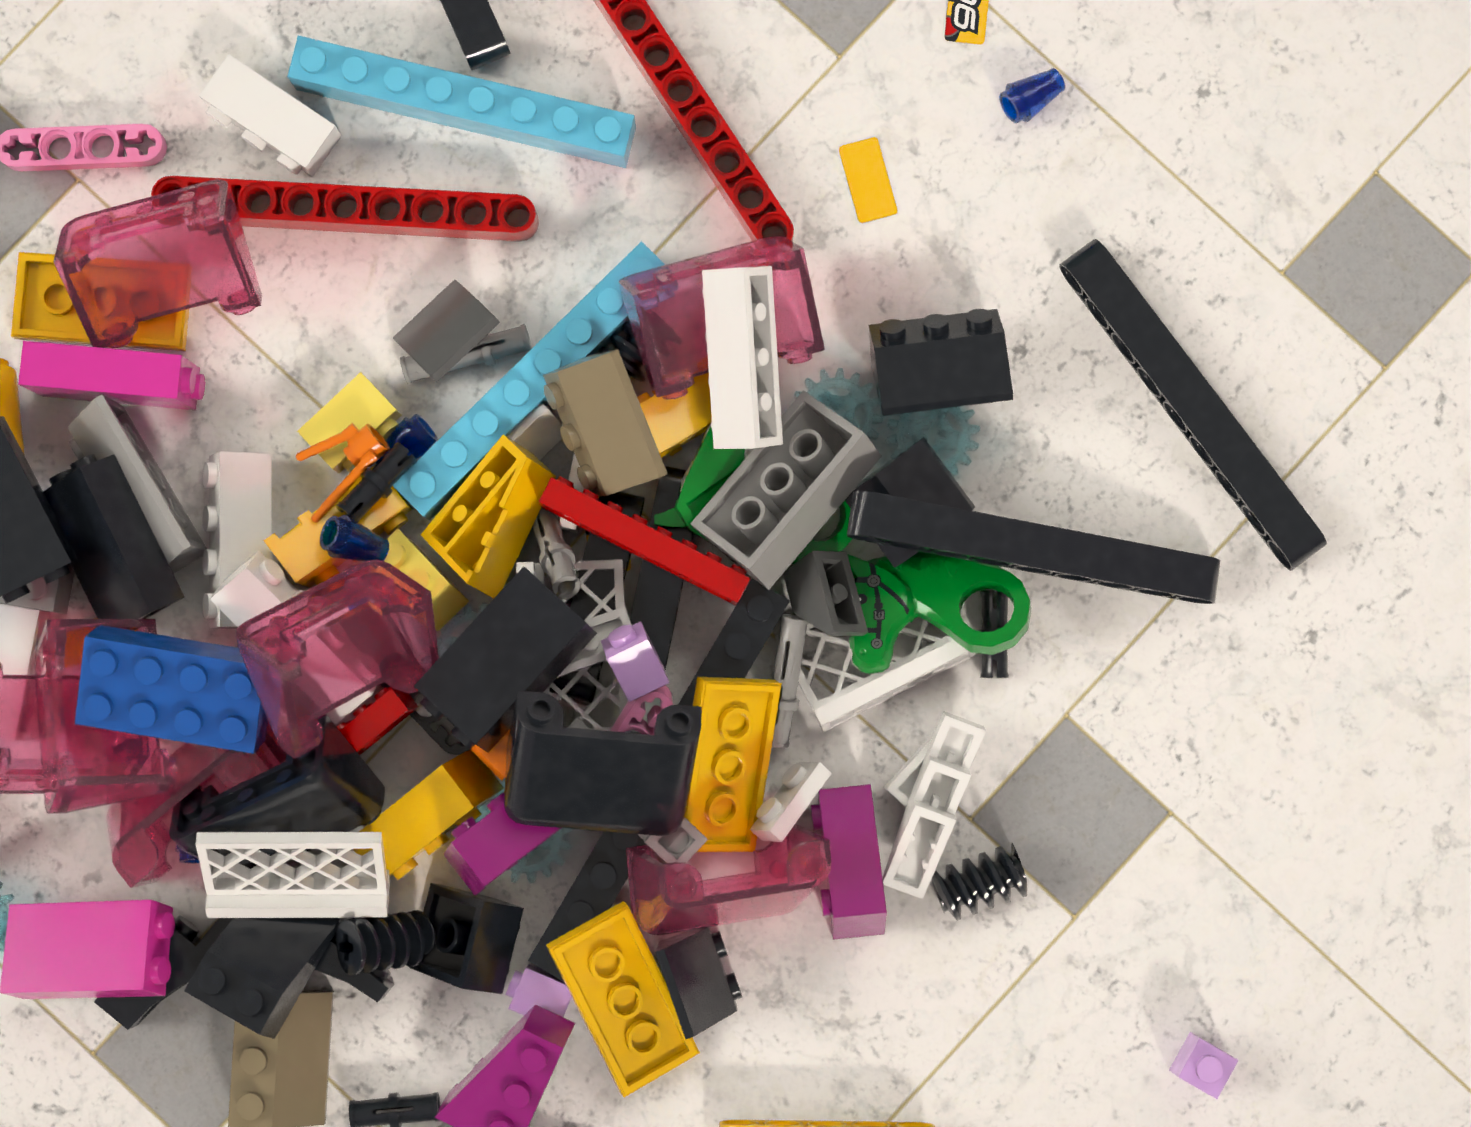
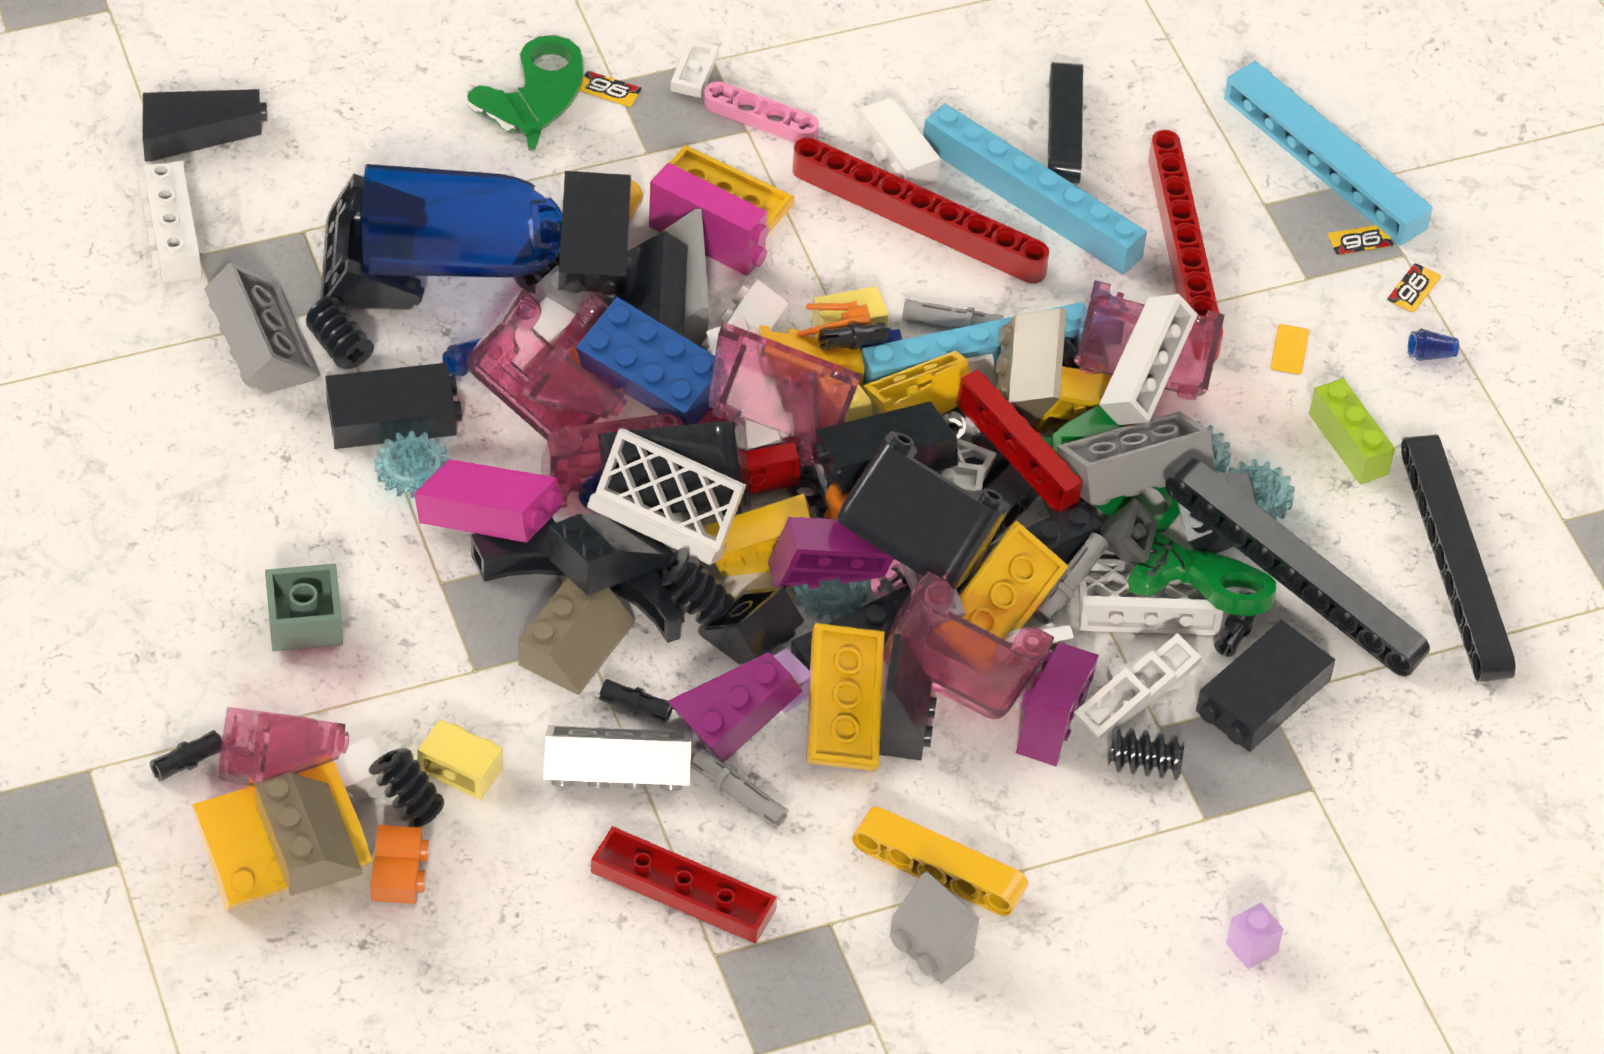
camera: 25 degrees right, 35 degrees down
(156, 261) = (782, 171): clear pink windscreen -> none
(351, 540) = (818, 344): clear blue cone -> none
(446, 330) = (949, 292): dark grey slope -> none
(634, 661) = (975, 475): lavender brick -> none
(940, 362) = (1286, 442): black slope -> none
(998, 284) = (1351, 431): none -> lime brick
(1064, 713) = (1265, 685): none -> black brick

